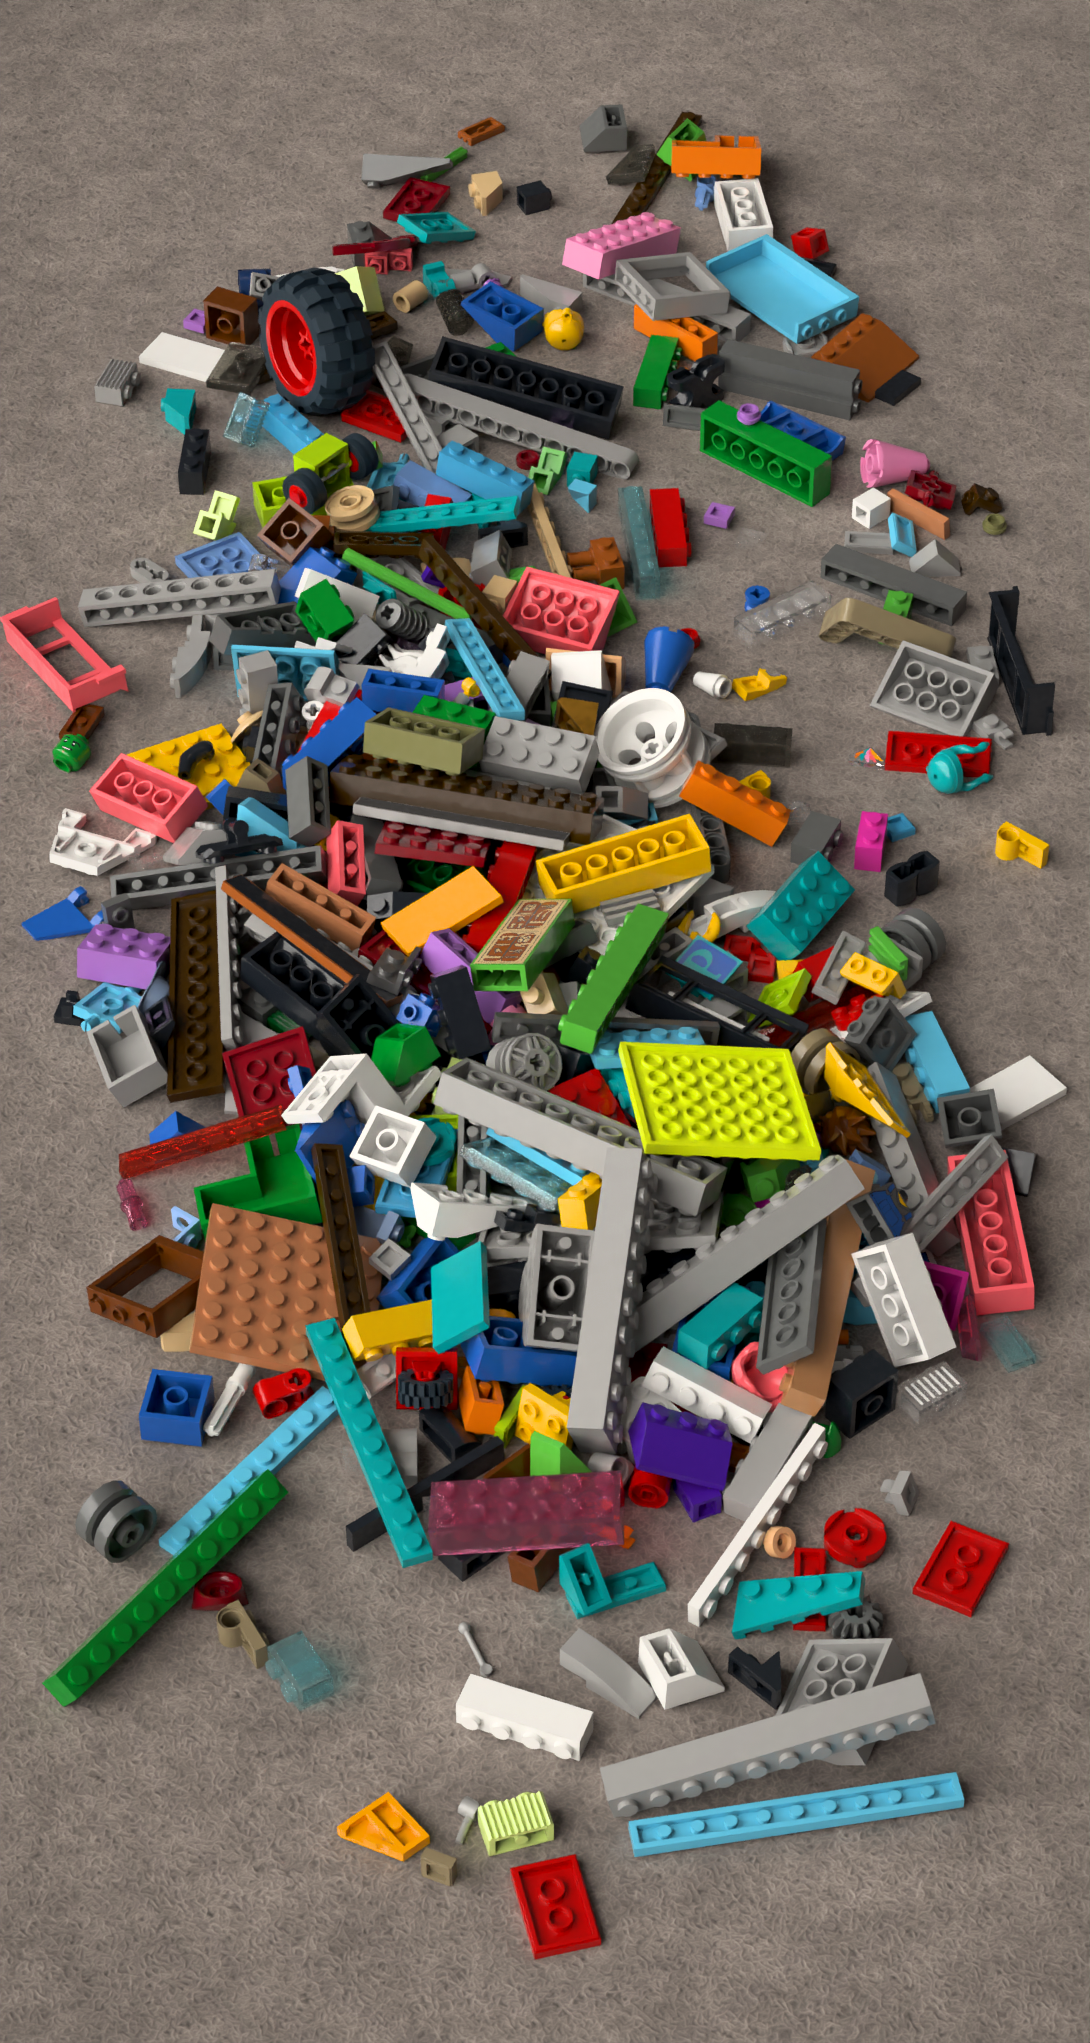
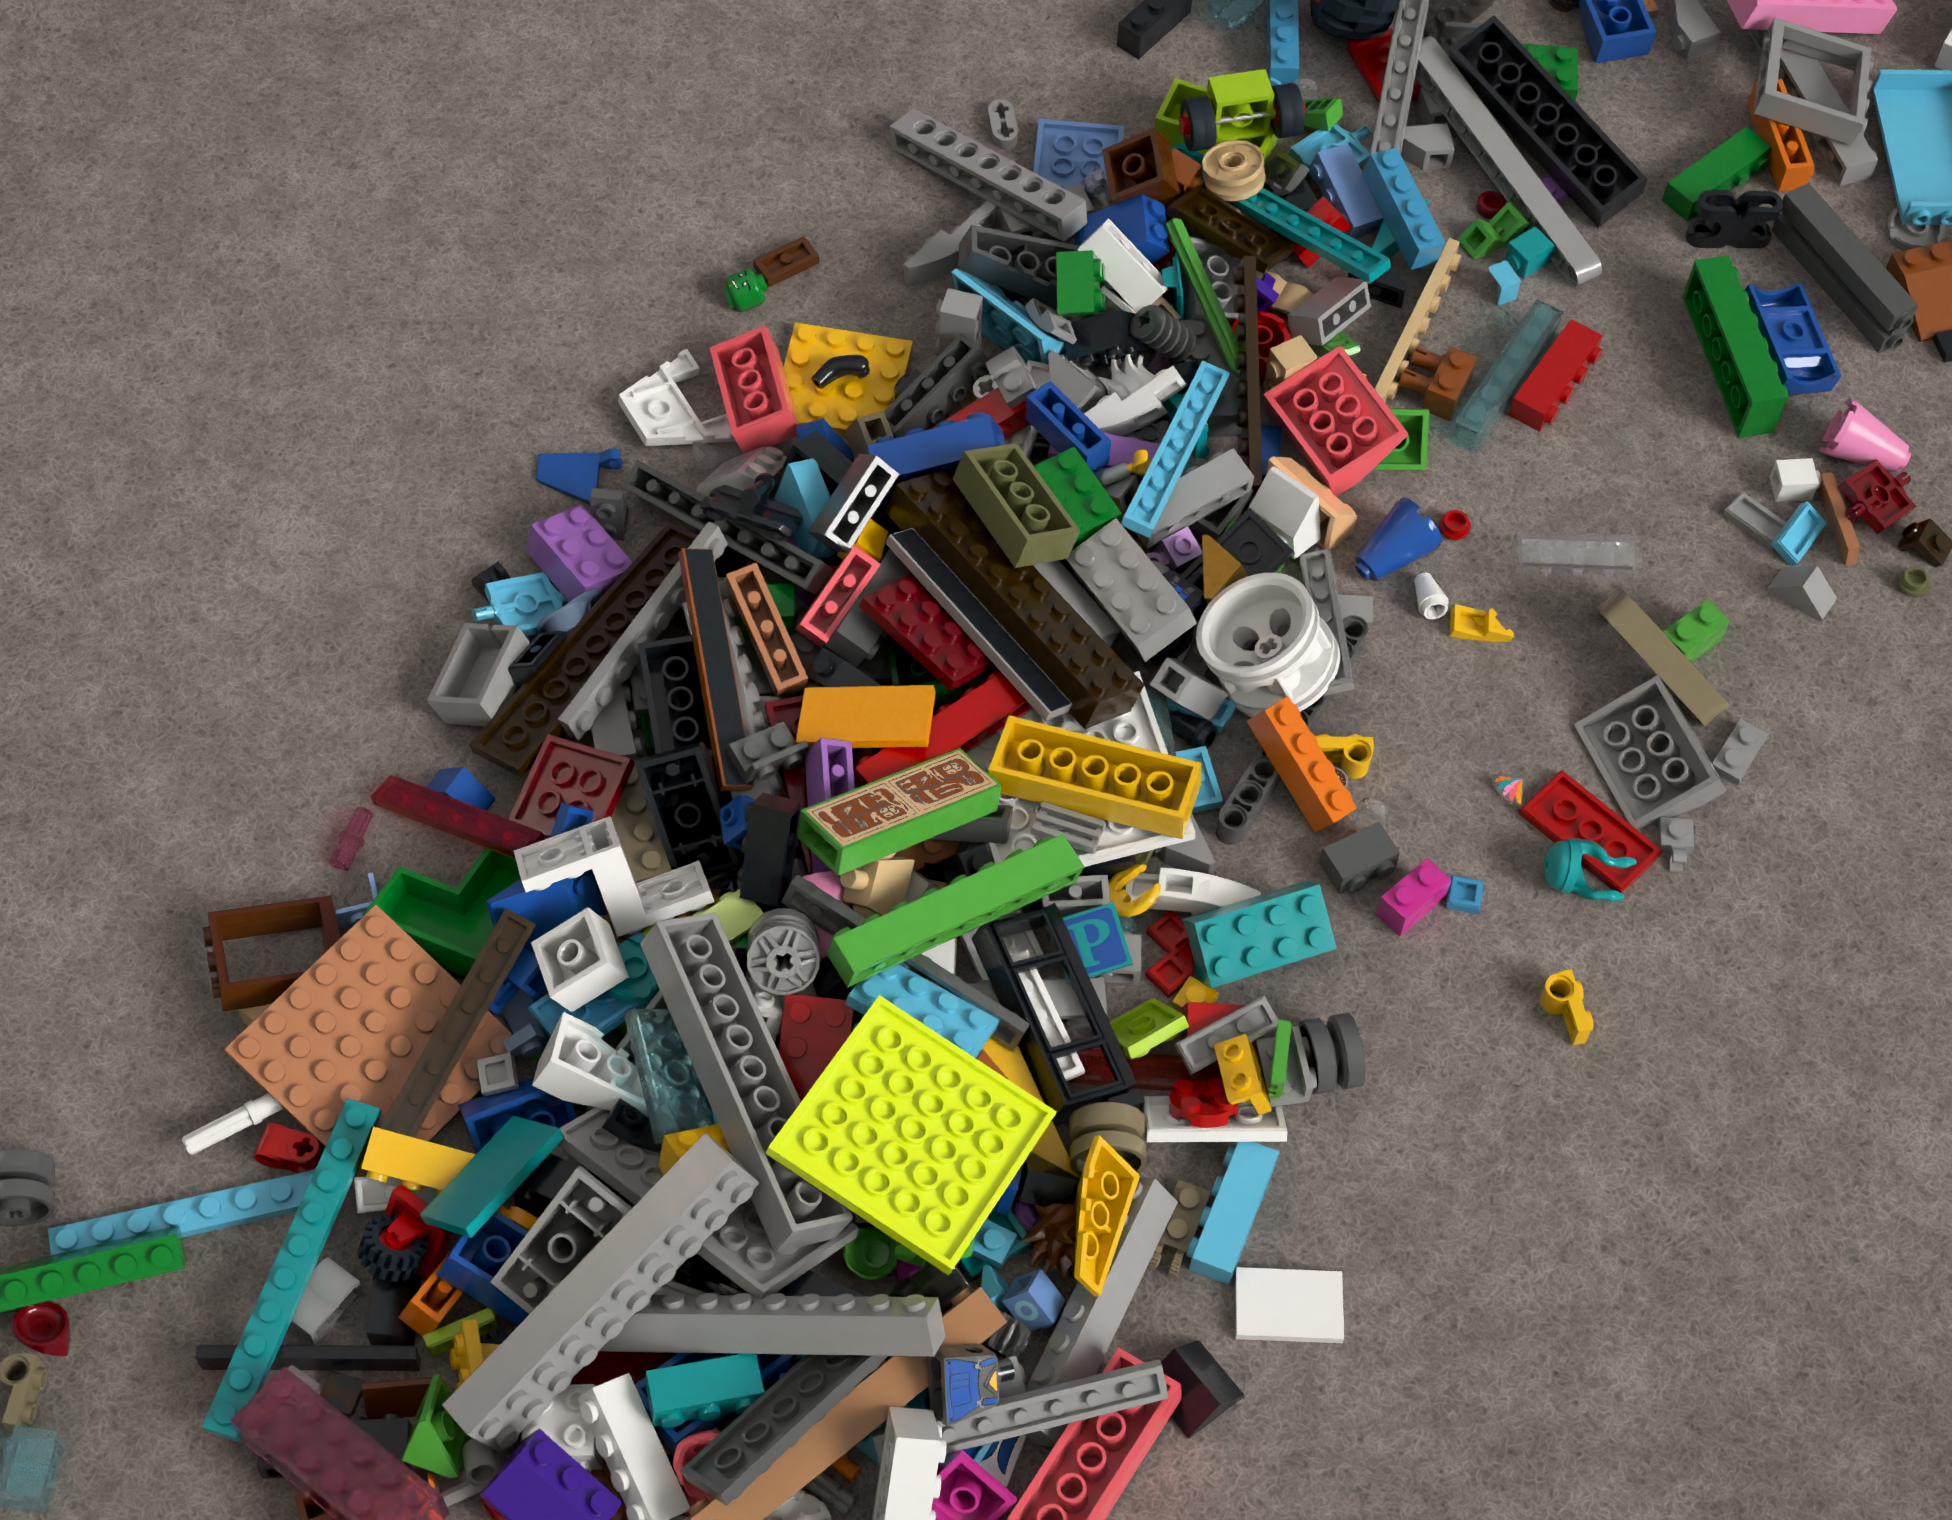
camera: 35 degrees right, 15 degrees up
(78, 691) = (831, 113): coral piece -> none
(176, 1407) = (179, 1097): blue brick -> none
(219, 520) = (1115, 103): yellowish green brick -> none
(246, 722) = (921, 362): tan dish -> none
(403, 1052) = (690, 856): green slope -> none
(563, 328) = (1665, 67): yellow hair -> none
(682, 416) = (1694, 244): dark grey tile -> none
(719, 515) = (1624, 391): medium lavender plate -> none
(749, 414) = (1739, 293): medium lavender plate -> none
(754, 745) = (1399, 698): clear smoke brick -> none
(756, 596) = (1569, 511): blue wheel -> none
(877, 577) = (1730, 589): dark grey brick -> none
(880, 1033) = (1186, 1150): dark grey plate -> none
(911, 878) = (1418, 973): black brick -> none
(969, 1117) = (1194, 1315): dark grey slope -> none
(1029, 701) = (1767, 777): black piece -> none

